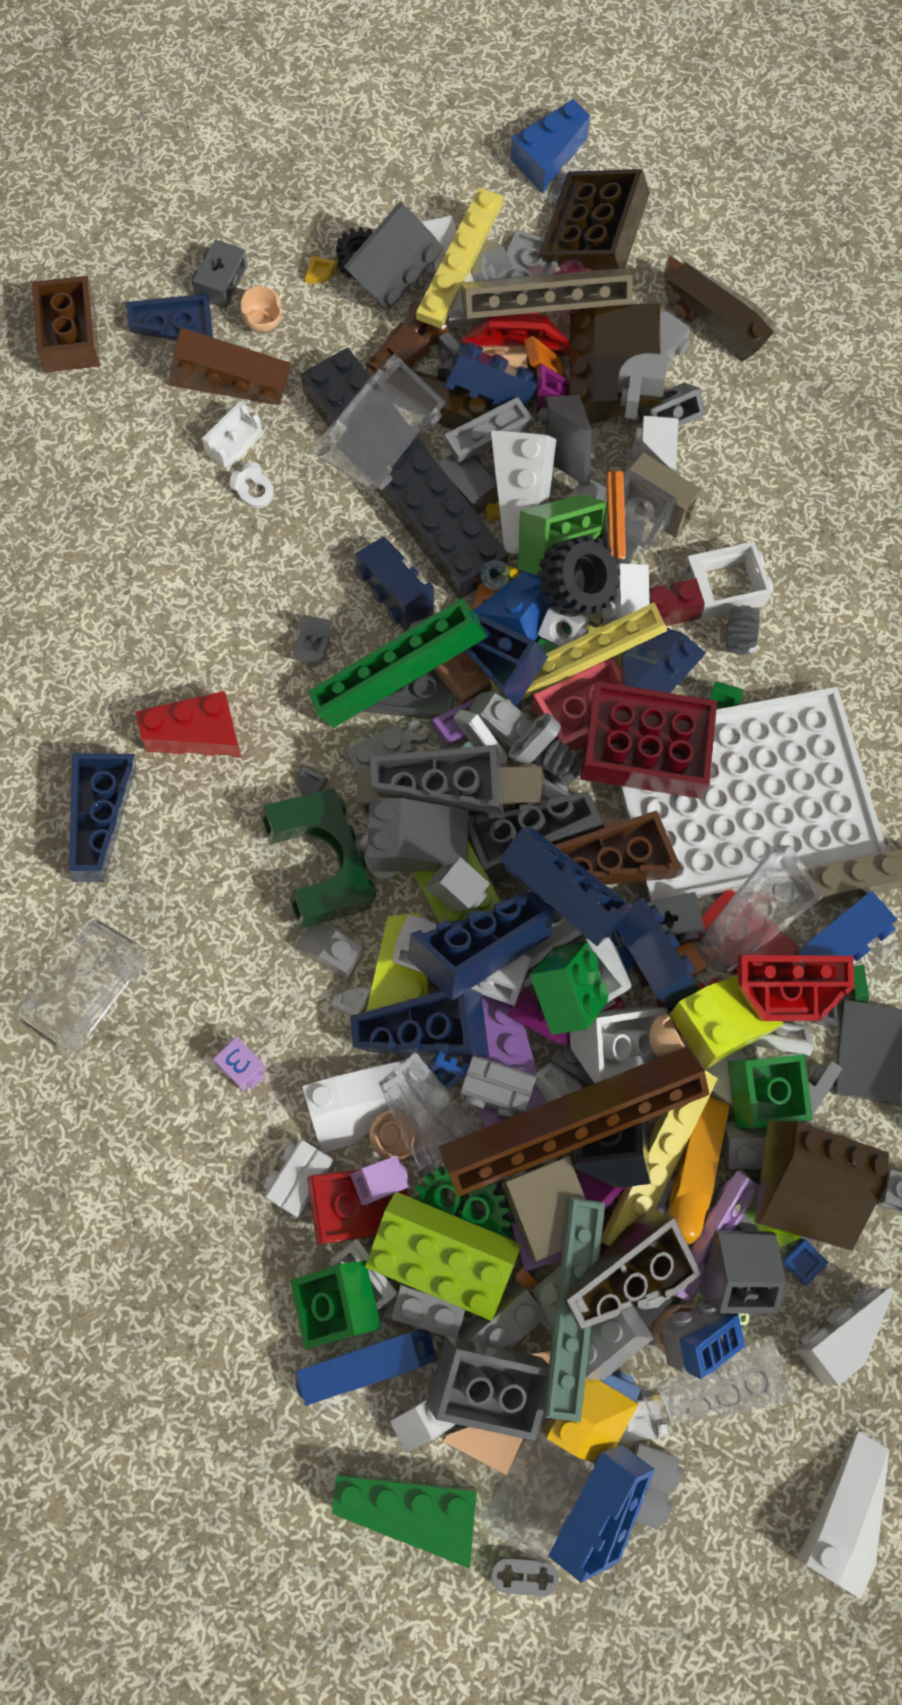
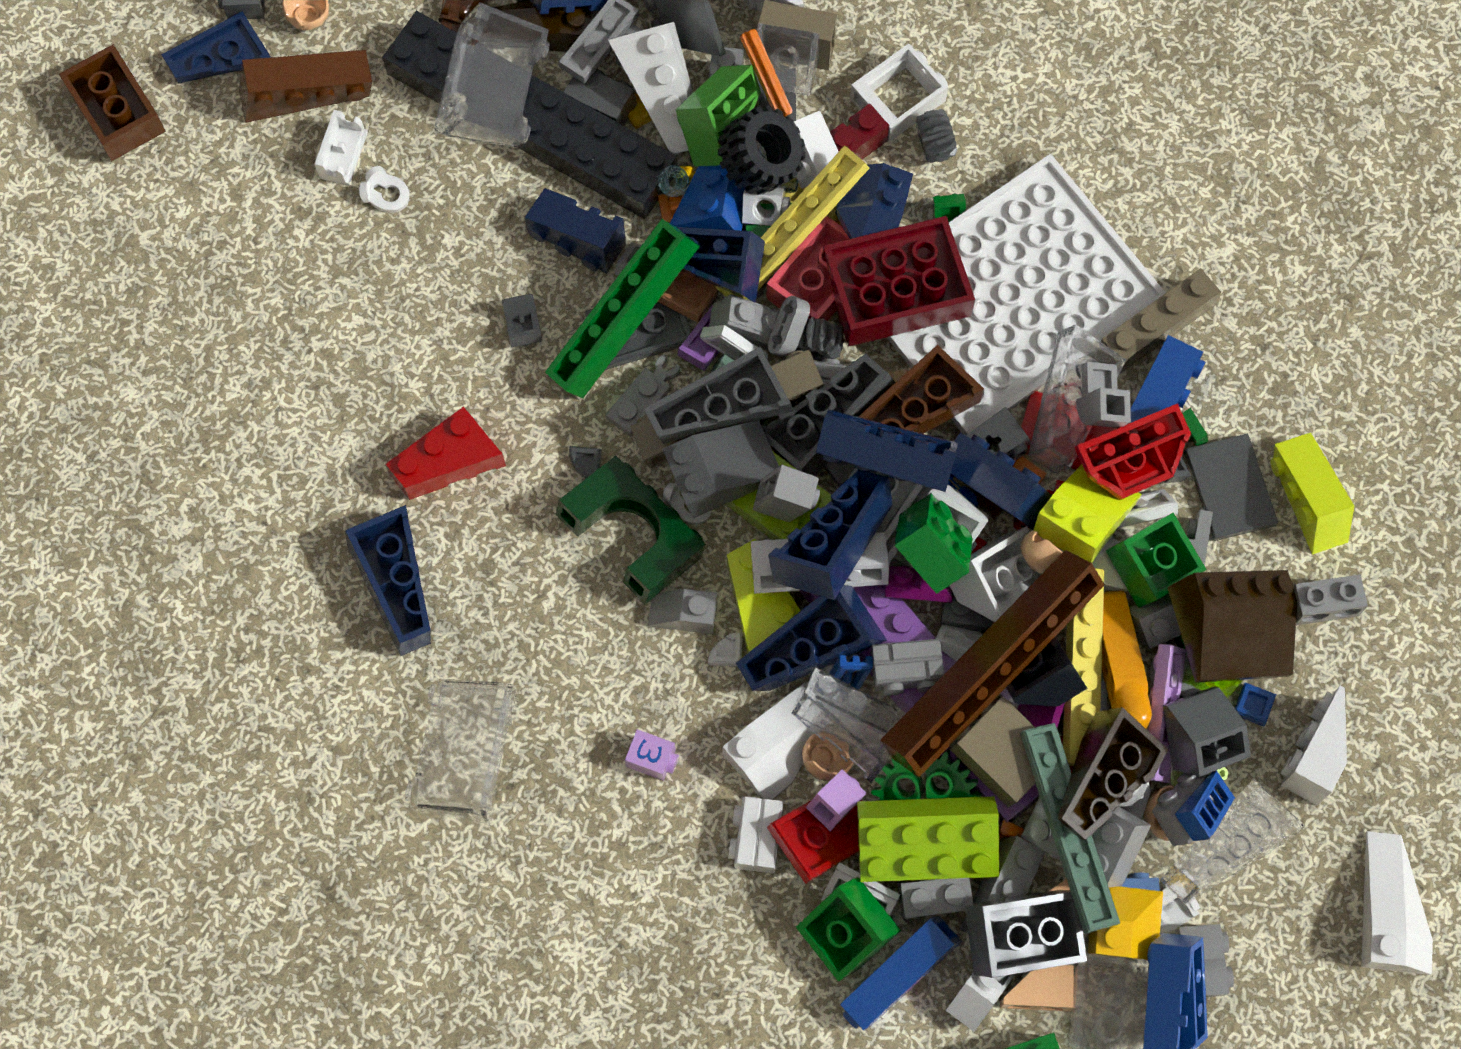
camera: 20 degrees left, 0 degrees up
(783, 922) = (1101, 400): none -> light grey brick

